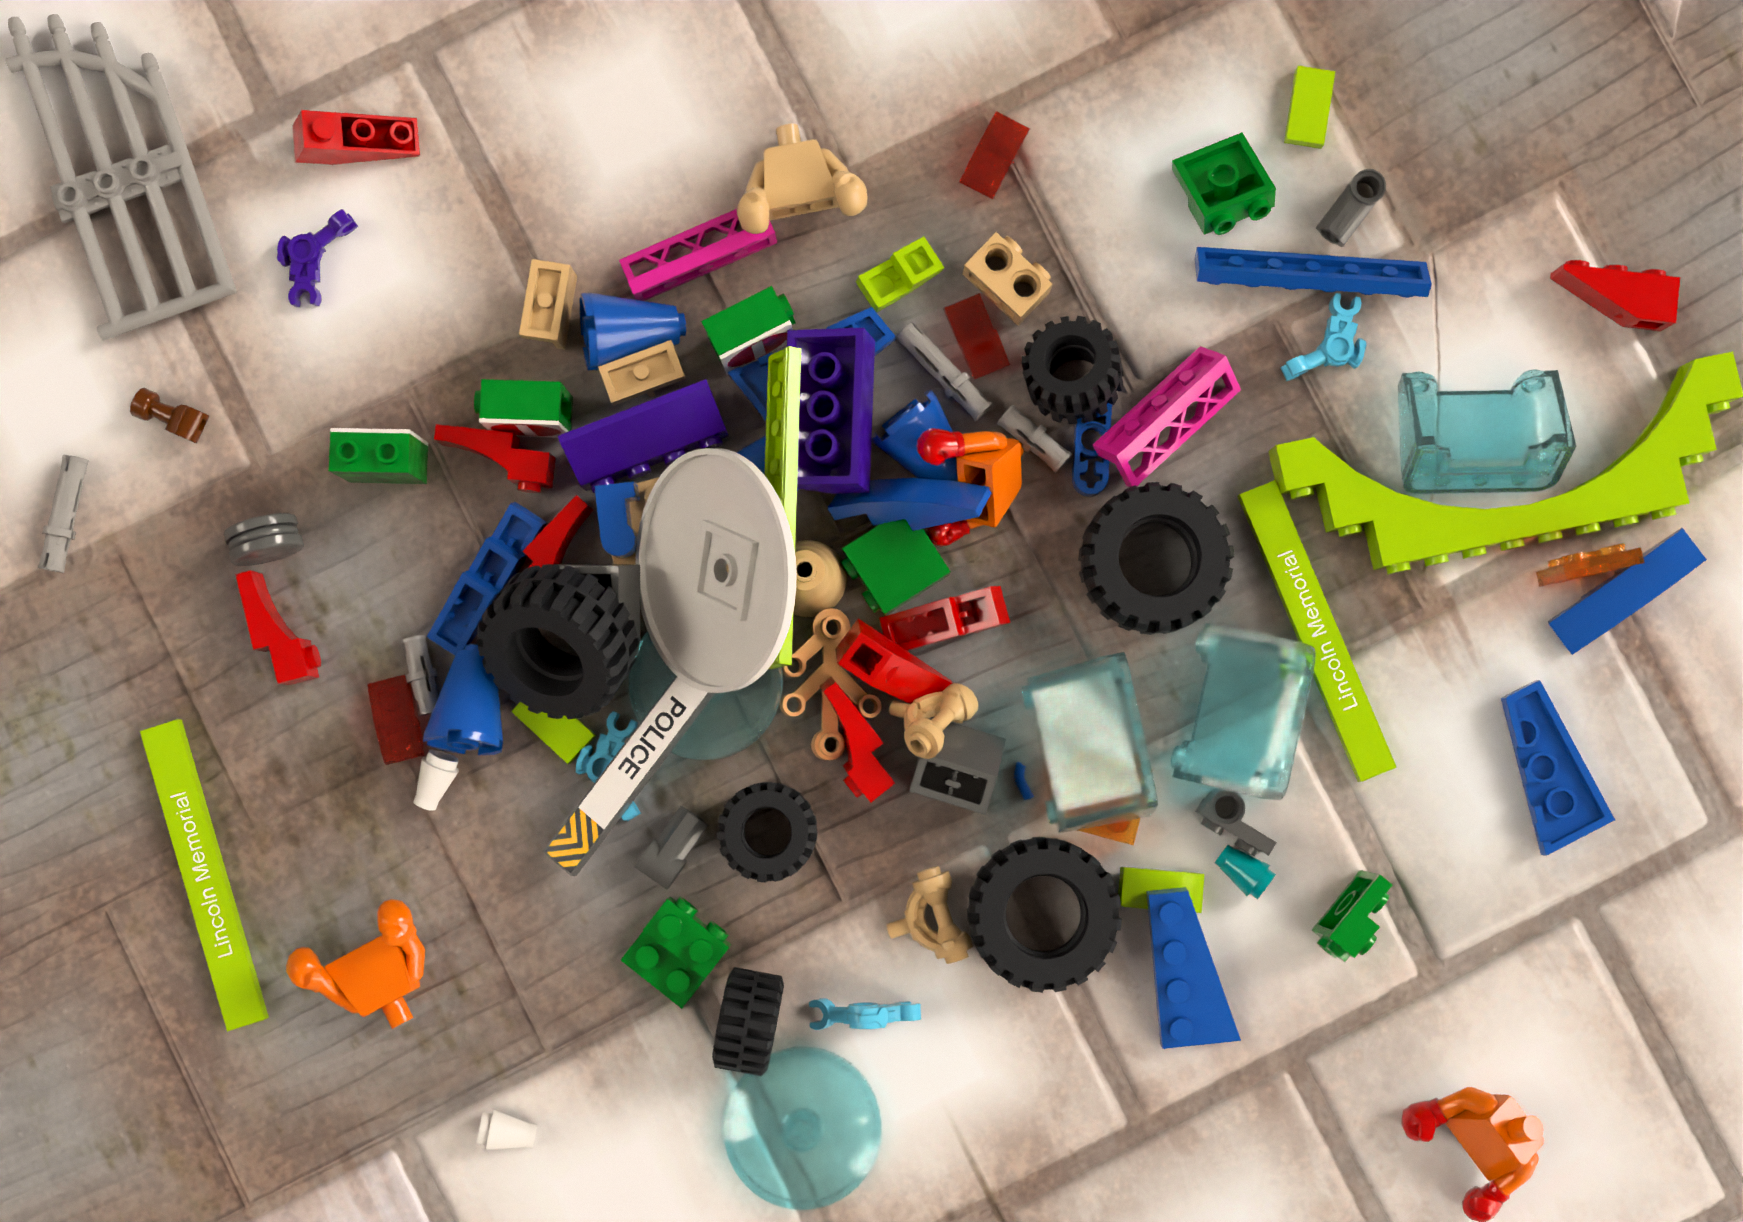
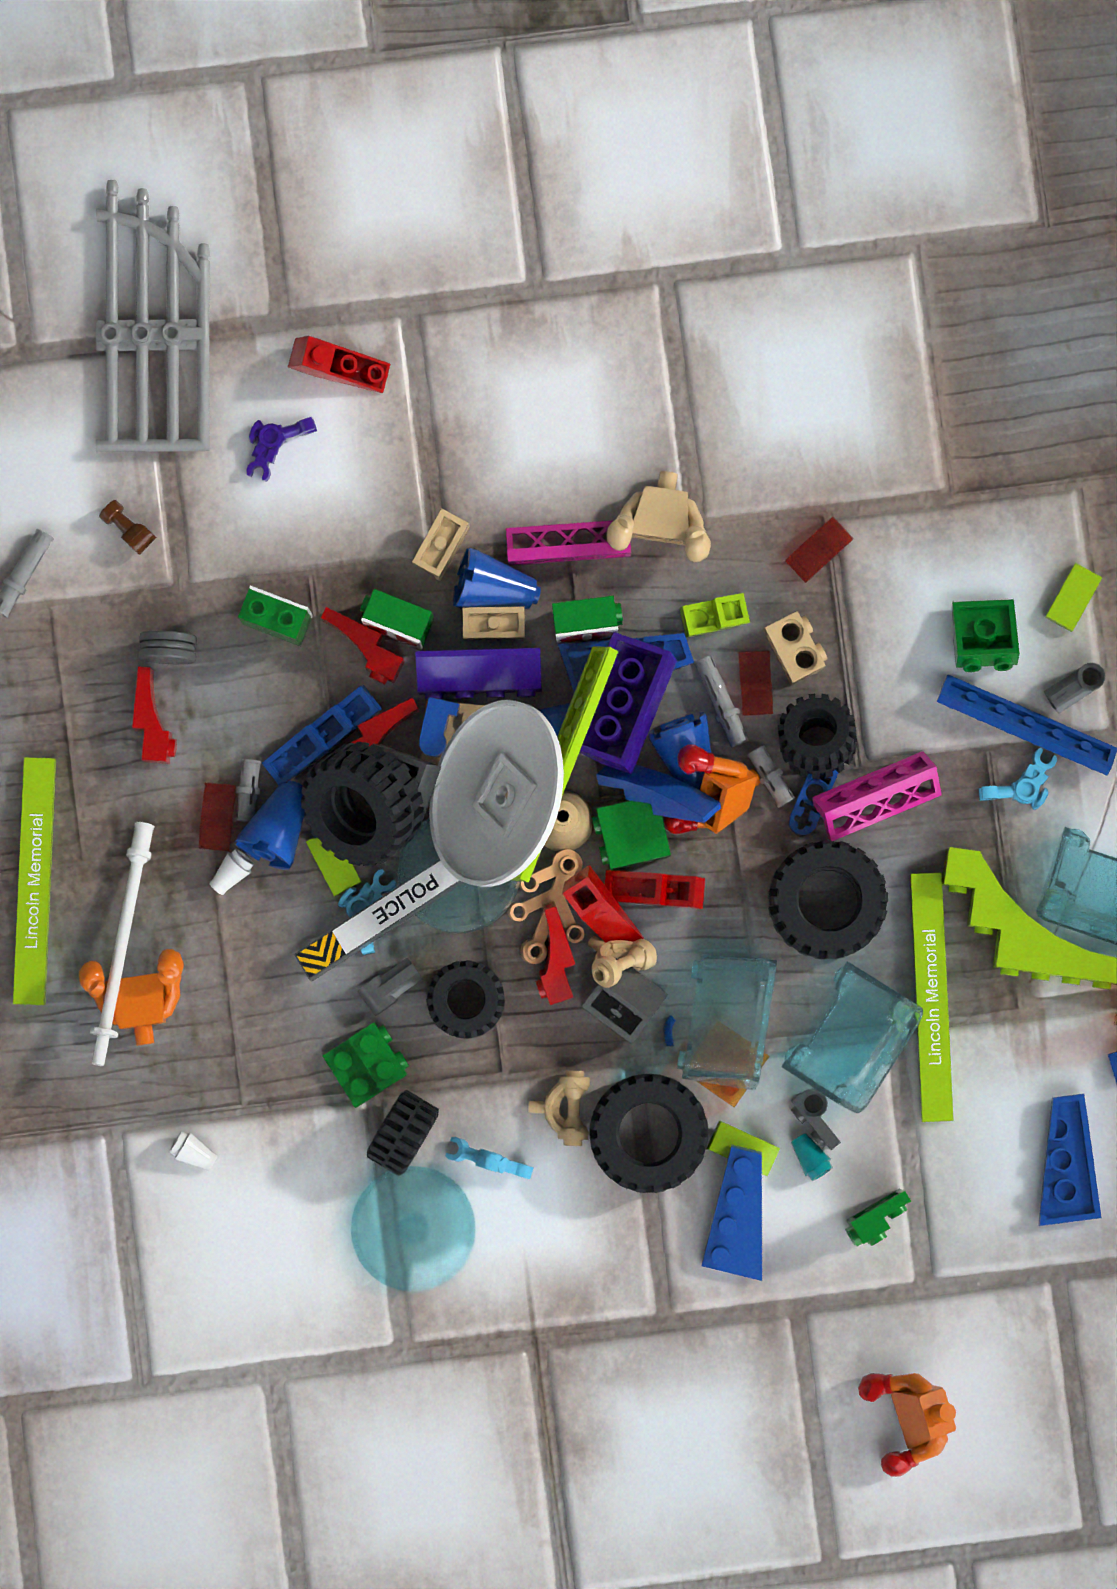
camera: 20 degrees right, 0 degrees up
(316, 799) = (138, 855): none -> white bar

